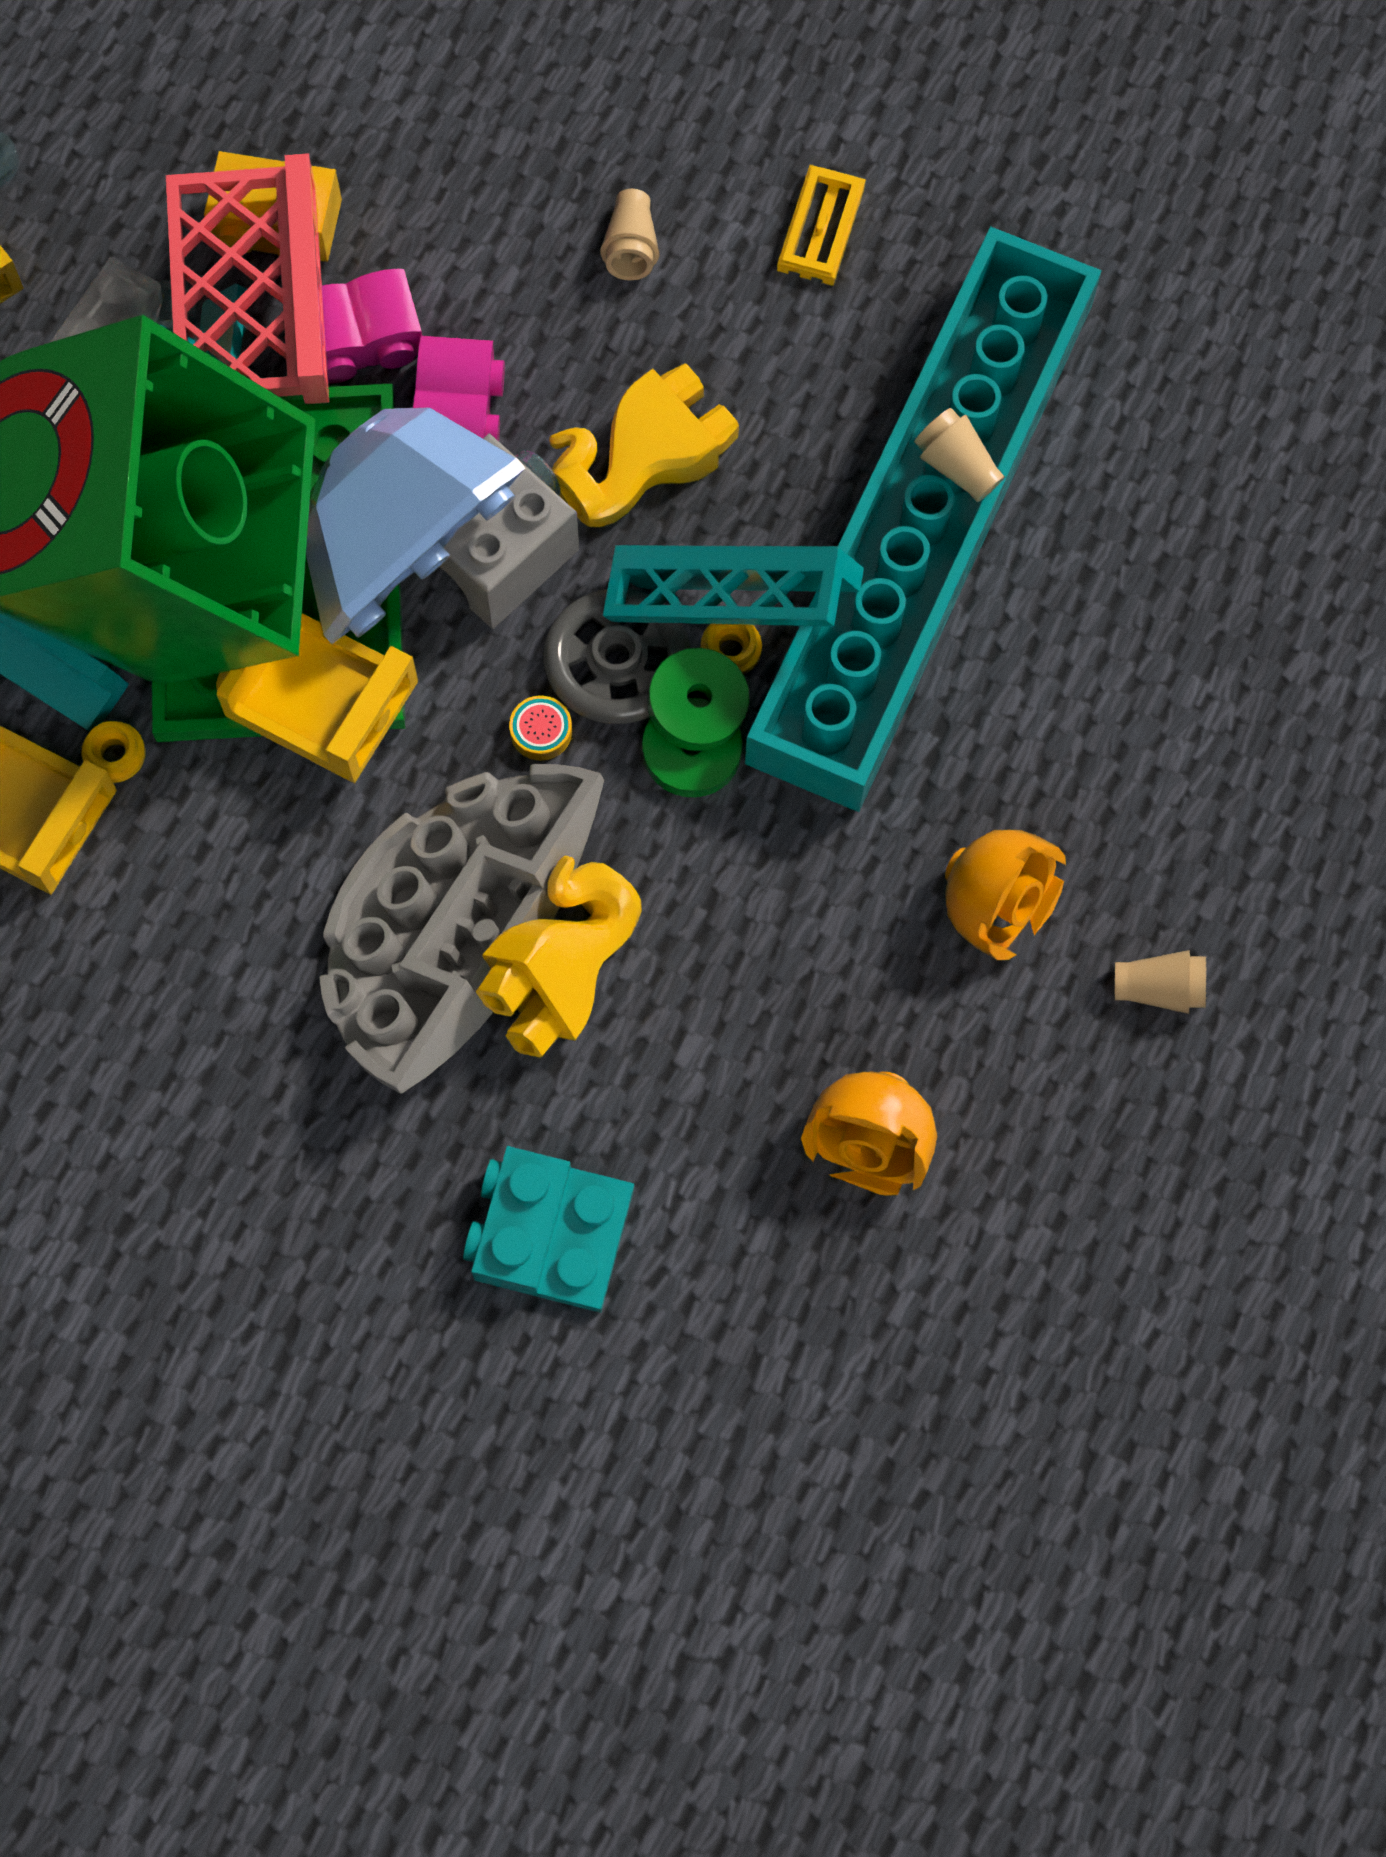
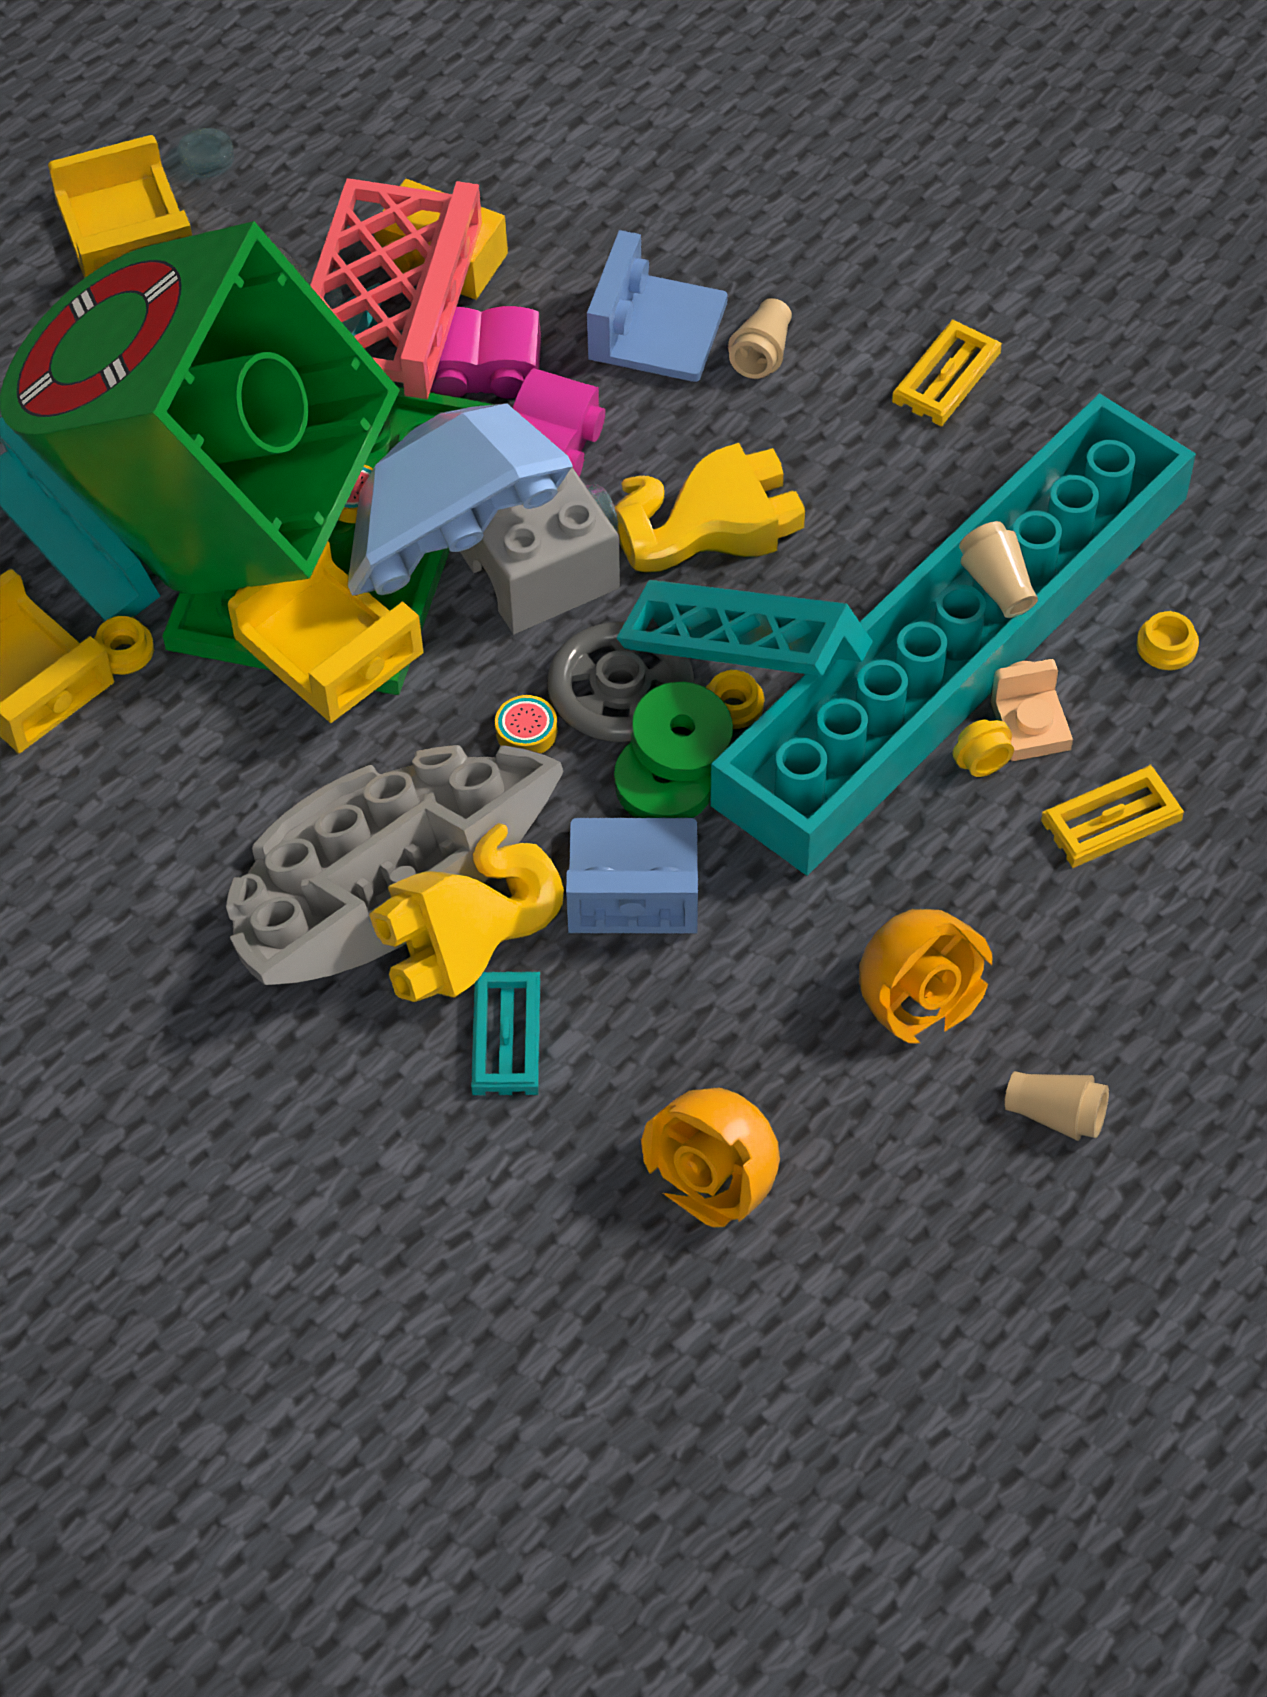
camera: 20 degrees right, 15 degrees down
(517, 241) = (651, 319): none -> medium blue bracket
(549, 1229) = (367, 1161): teal plate -> none
(647, 1107) = (506, 1080): none -> teal tile
(698, 860) = (632, 875): none -> medium blue bracket
(985, 633) = (984, 747): none -> yellow plate
(1015, 581) = (1031, 709): none -> light nougat bracket
(1087, 703) = (1122, 835): none -> yellow tile
(1120, 470) = (1167, 641): none -> yellow plate

